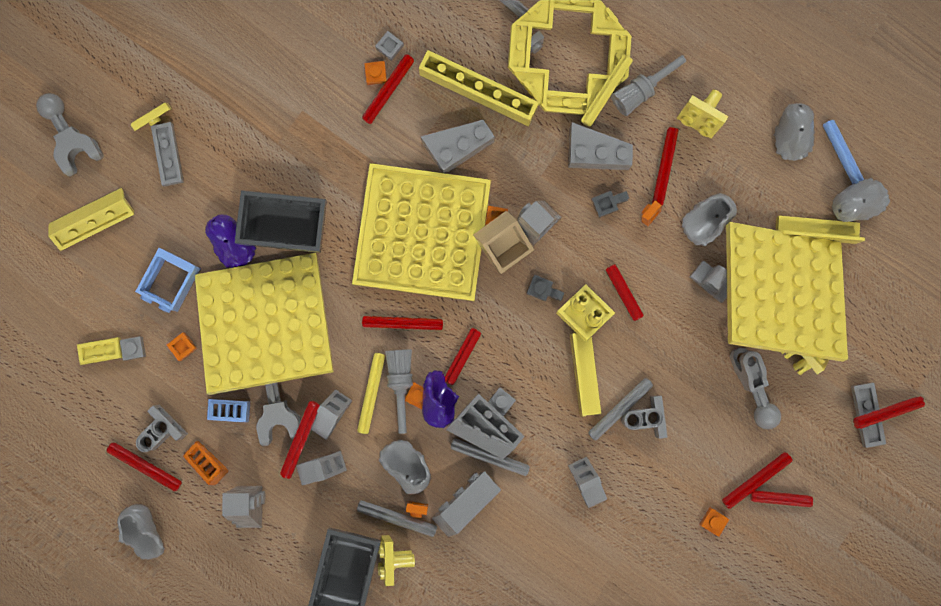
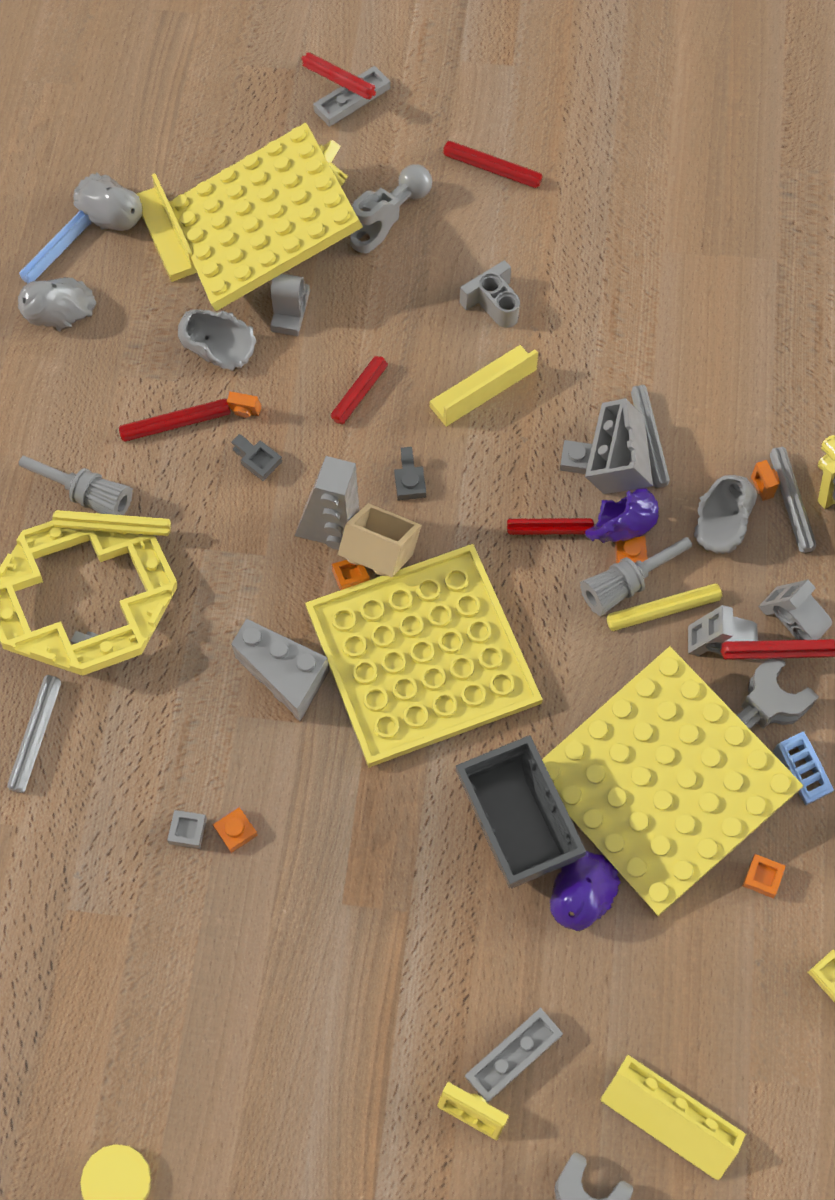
camera: 115 degrees left, 20 degrees down
(132, 348) = (810, 945): light grey plate -> none
(152, 272) = (655, 944): light blue window -> none
(387, 89) = (250, 800): red axle -> none
(402, 323) = (553, 617): red axle -> none
(466, 504) = (724, 427): light grey wedge -> none
(478, 88) = (189, 679): light yellow brick -> none
(585, 313) = (411, 413): light yellow plate -> none
(588, 482) = (608, 316): light grey tile -> none
(597, 151) = (198, 502): light grey wedge -> none
(620, 409) = (501, 329): light grey axle -> none
(703, 115) = (86, 400): light yellow plate -> none
(714, 522) = (566, 183): orange plate -> none
(781, 498) = (496, 133): red axle -> none

